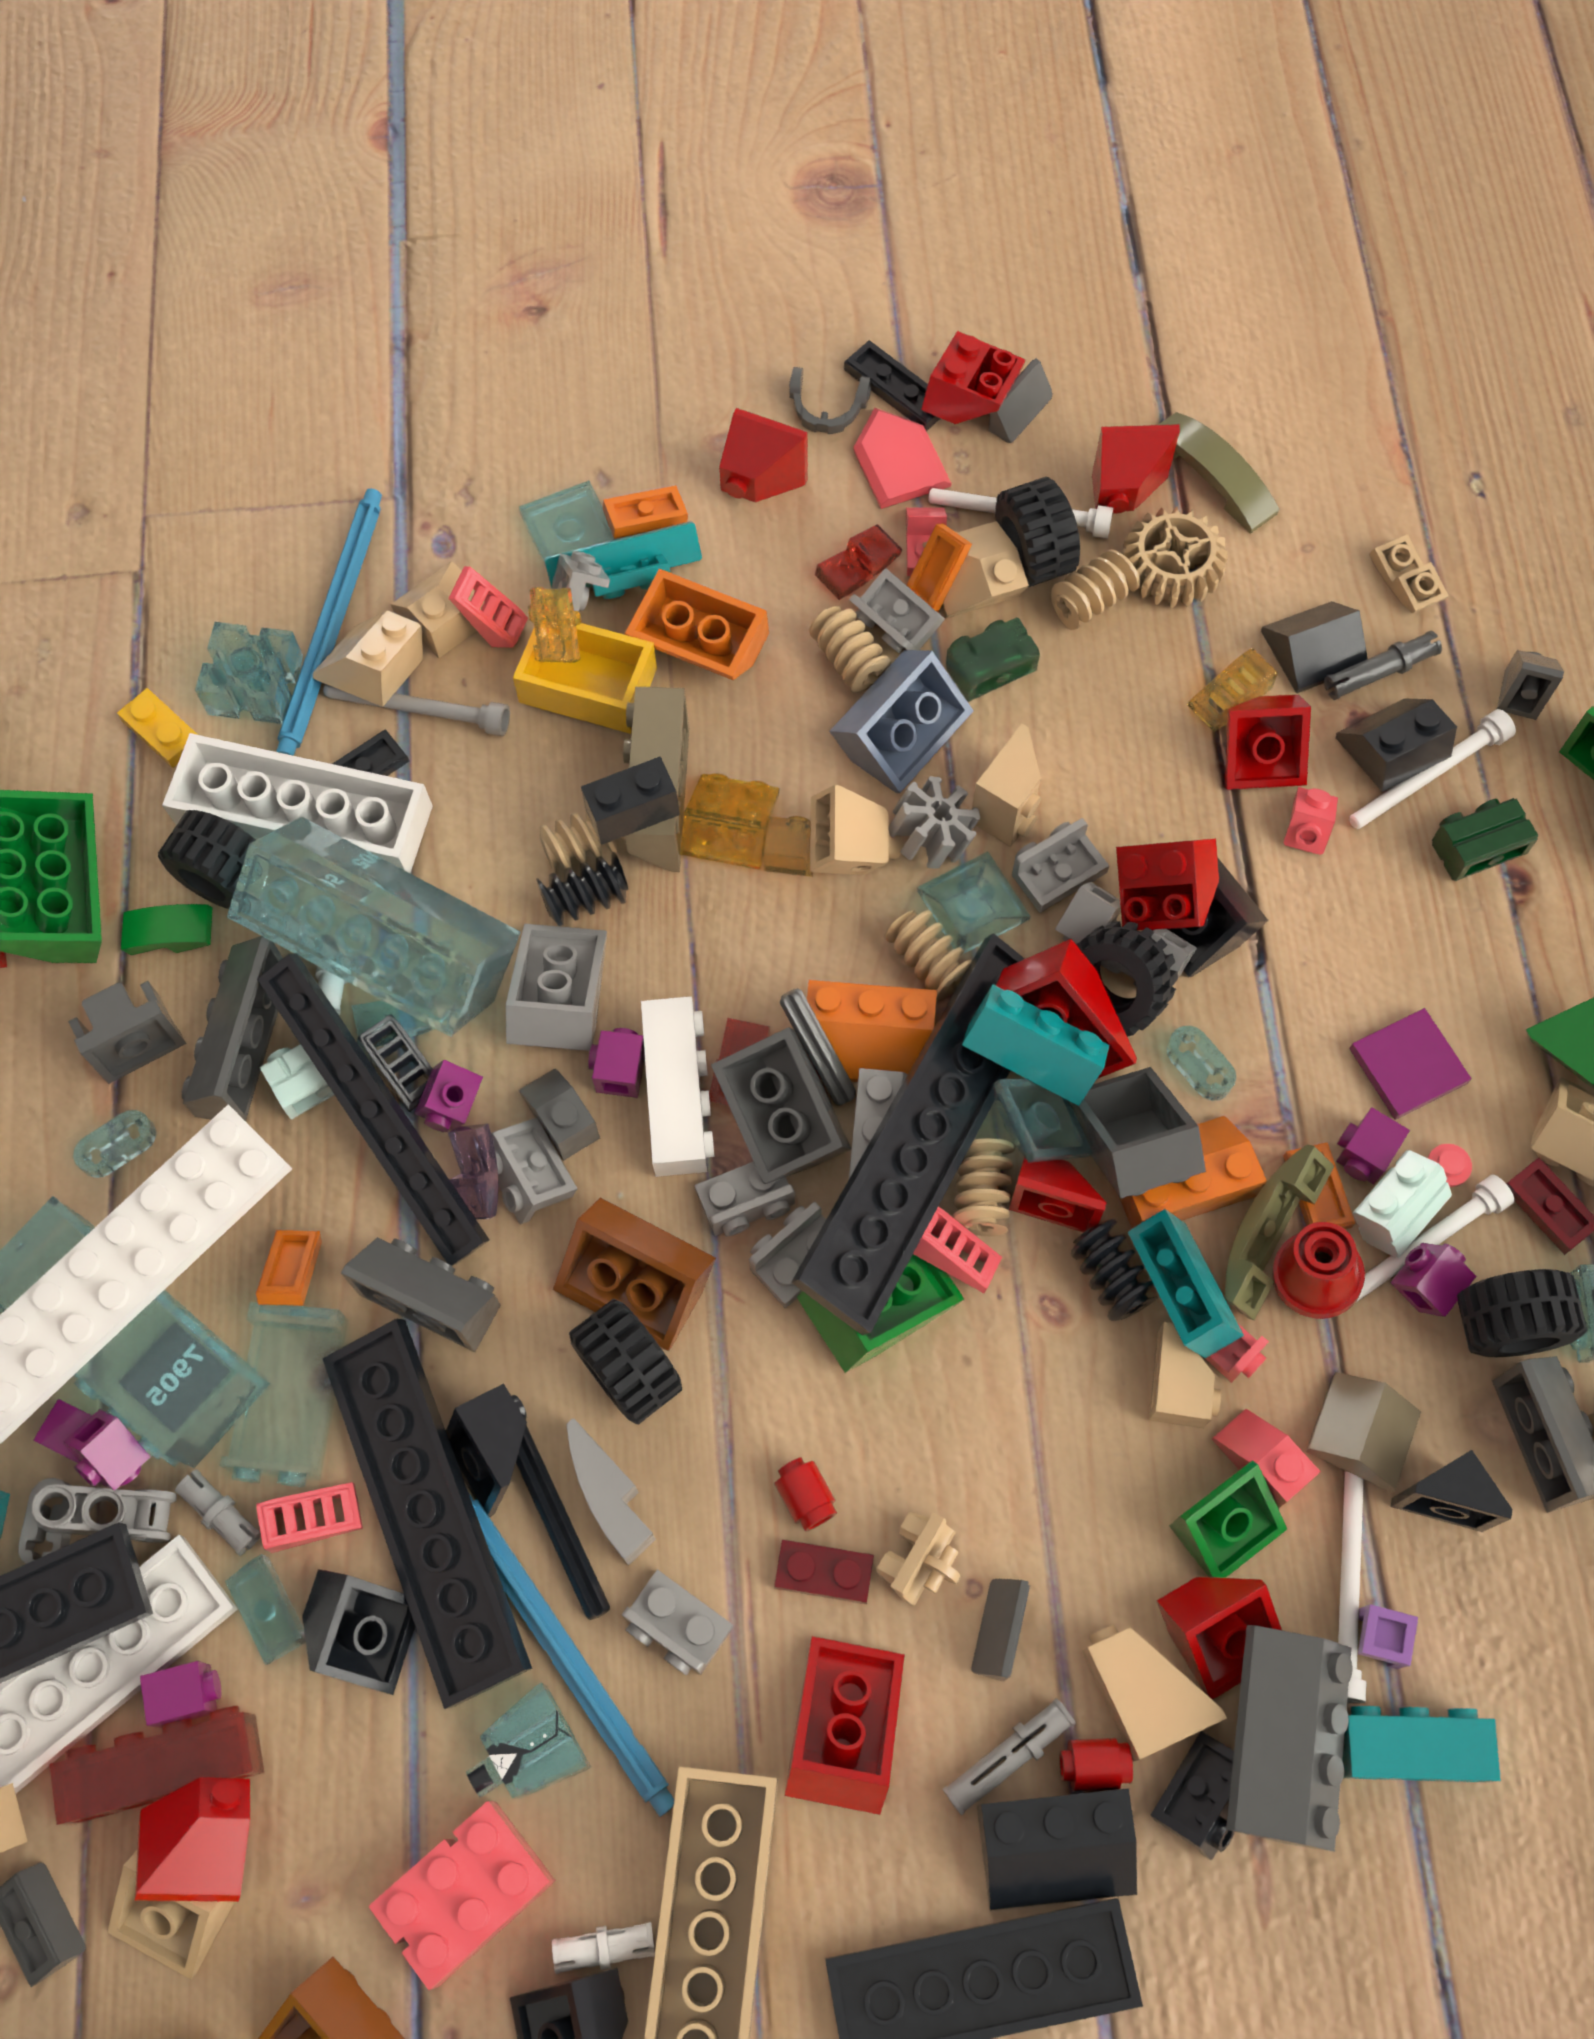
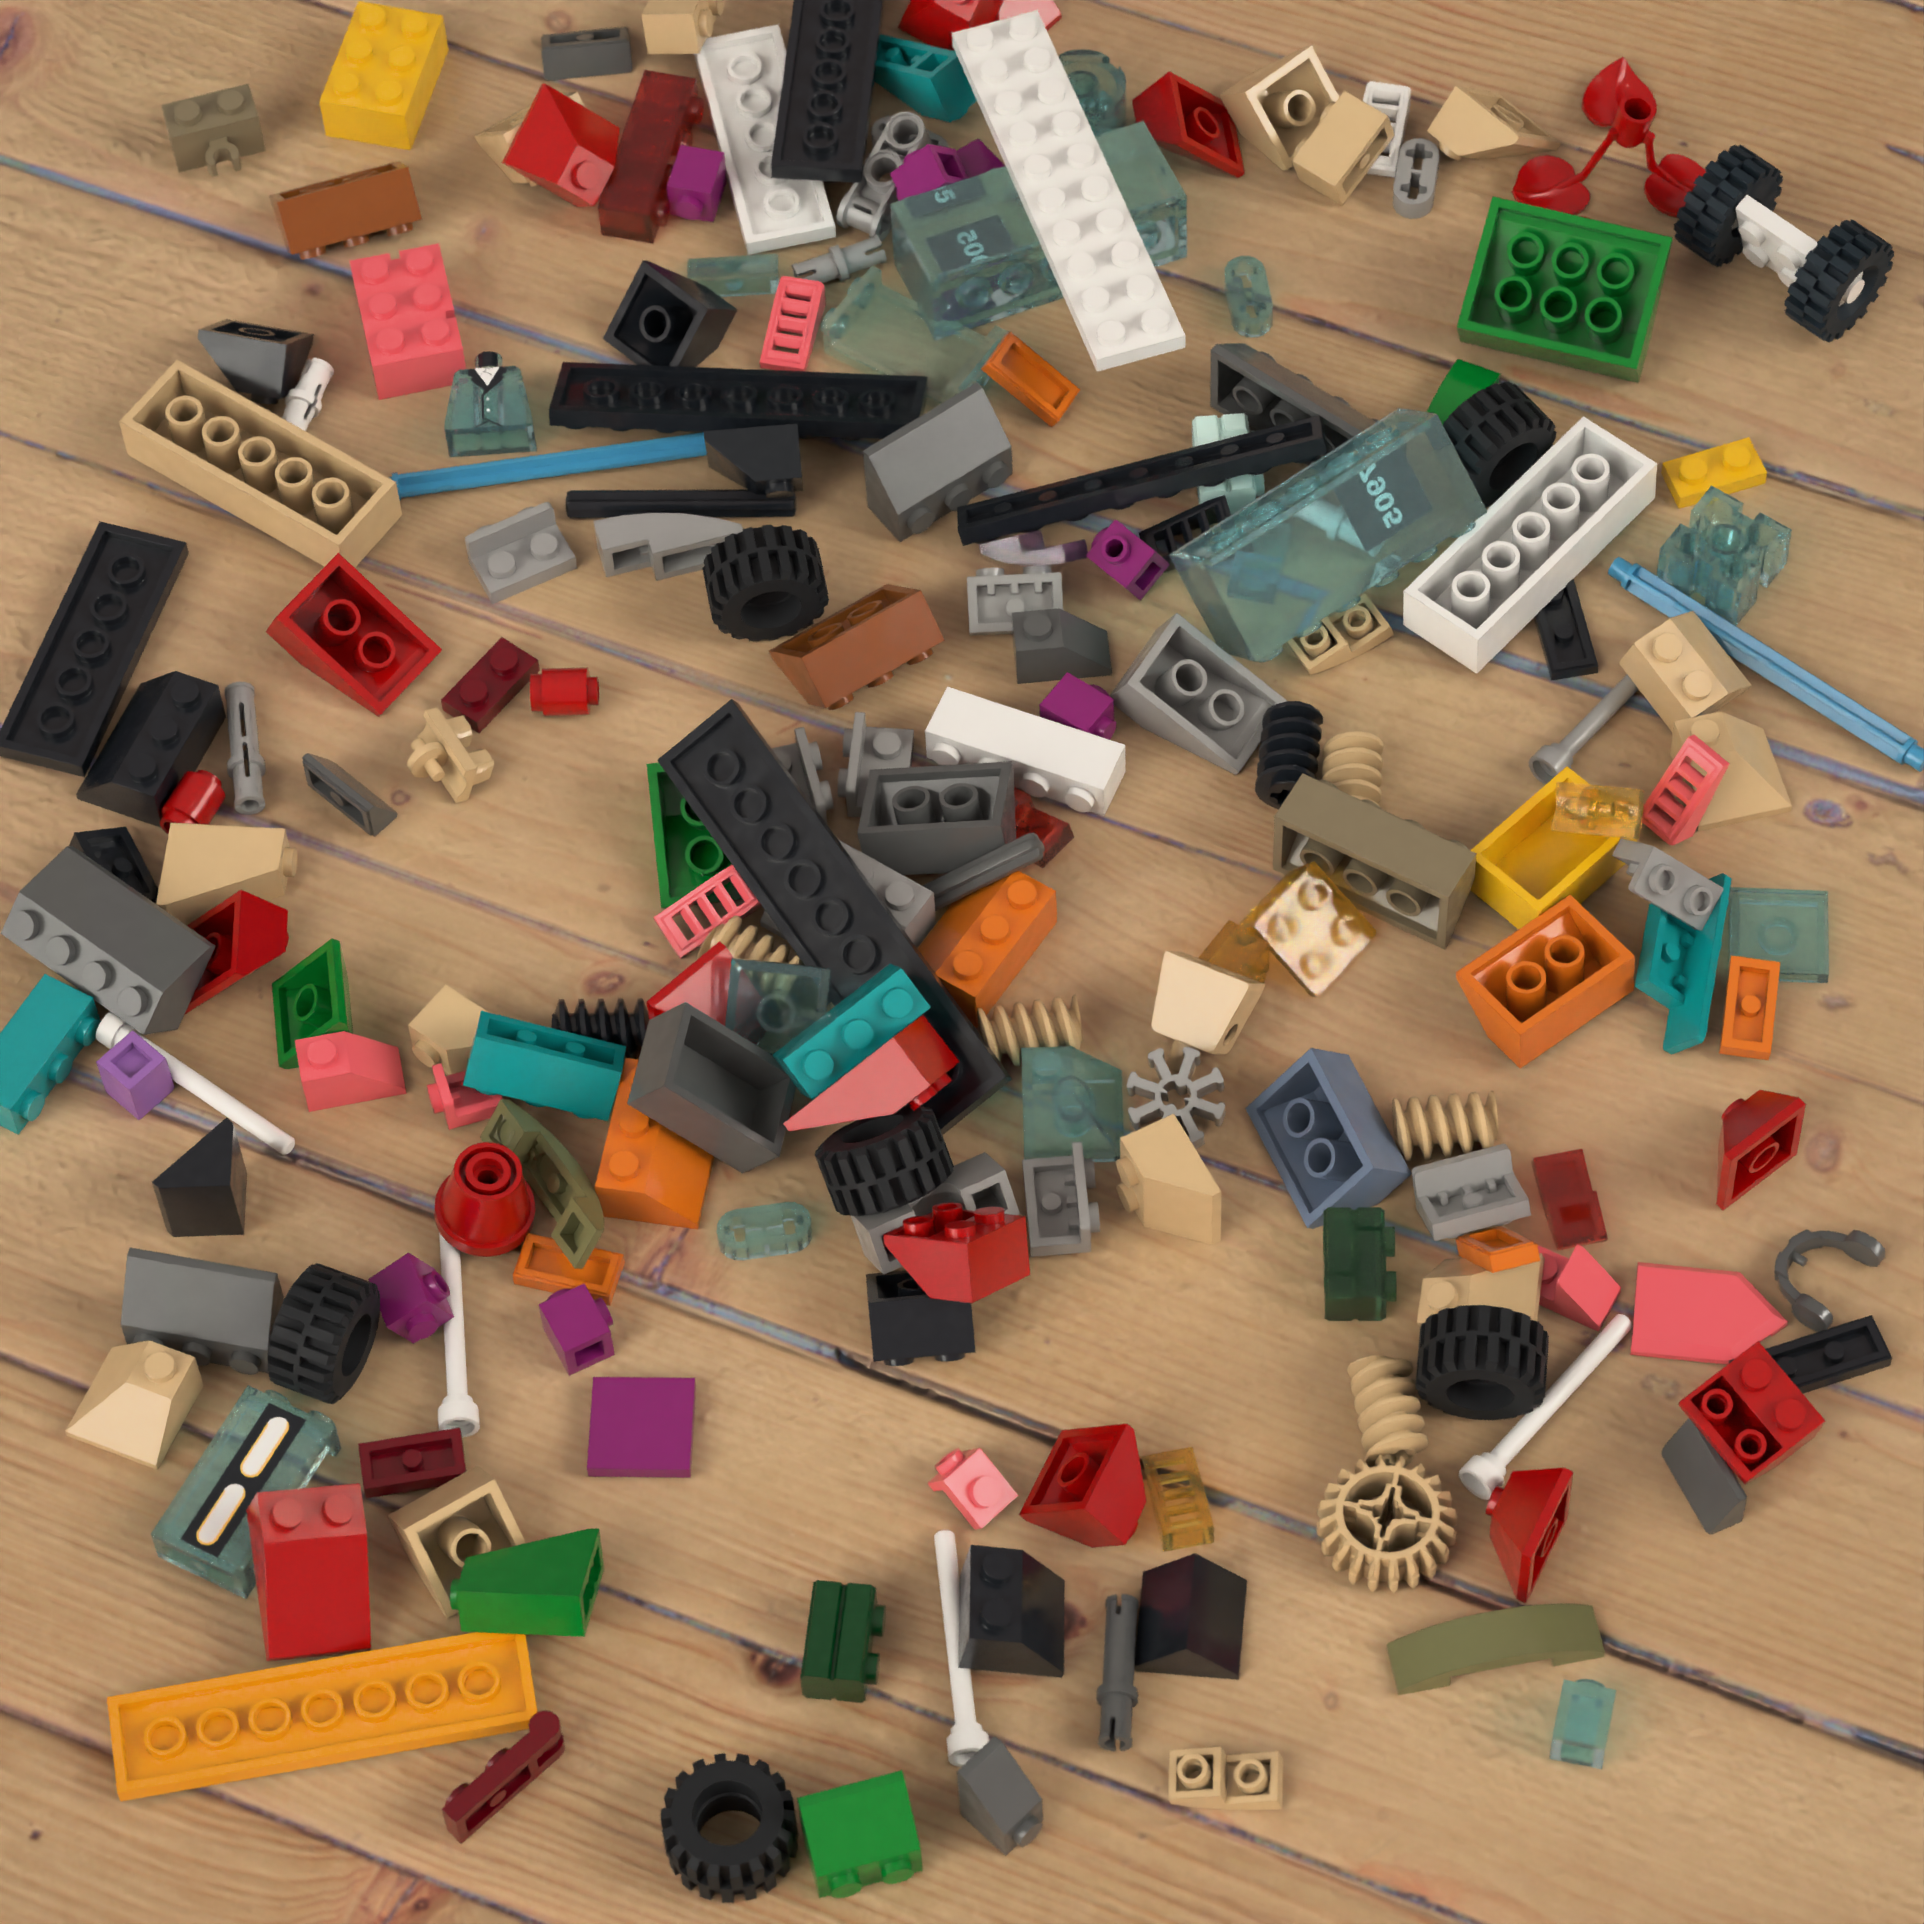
camera: 120 degrees right, 10 degrees down
(125, 1034) = (1345, 297): dark grey panel -> none
(630, 800) = (1323, 774): black brick -> none
(1238, 395) = (1583, 1723): none -> clear light blue brick
(1364, 1429) = (316, 1170): dark tan slope -> none
(1402, 1203) = (500, 1313): light aqua brick -> none
(1454, 1161) = (514, 1396): coral plate -> none

